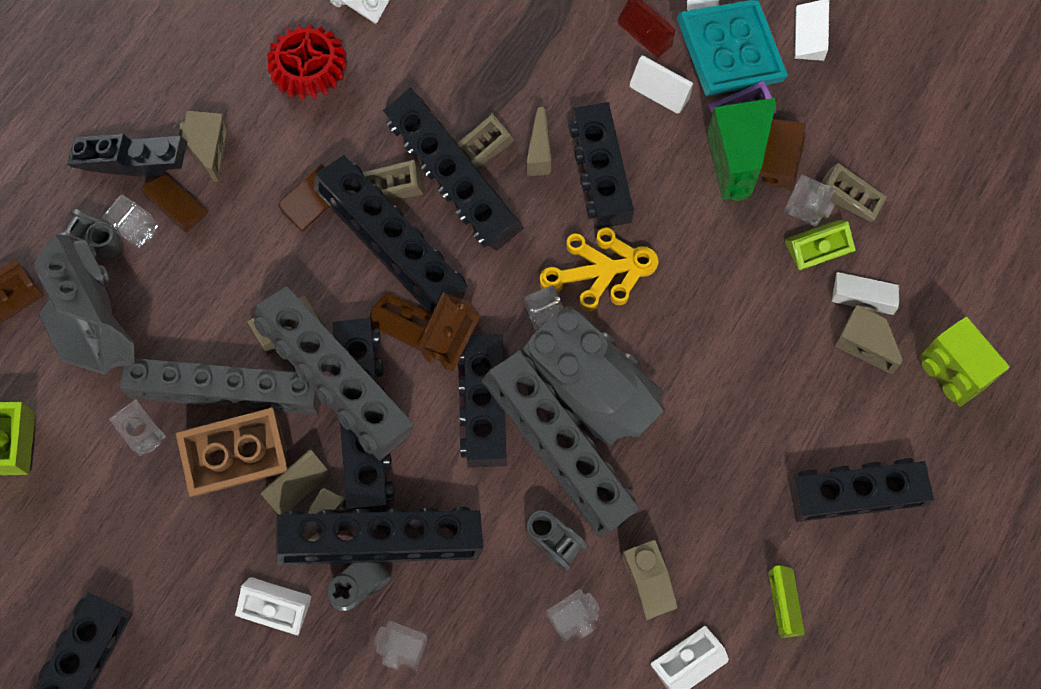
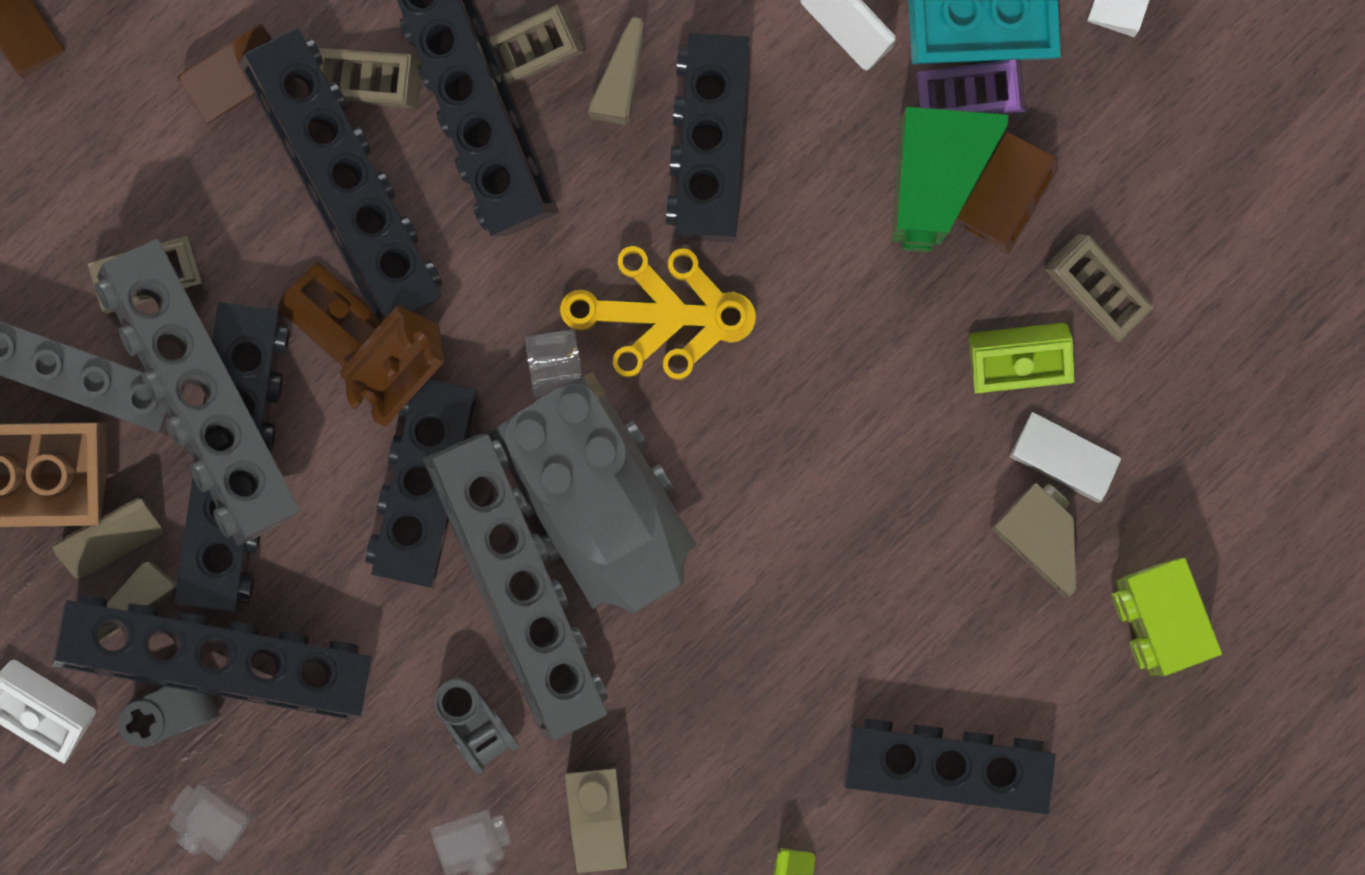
camera: 10 degrees right, 15 degrees up
(810, 201) = (1026, 286): clear brick -> none

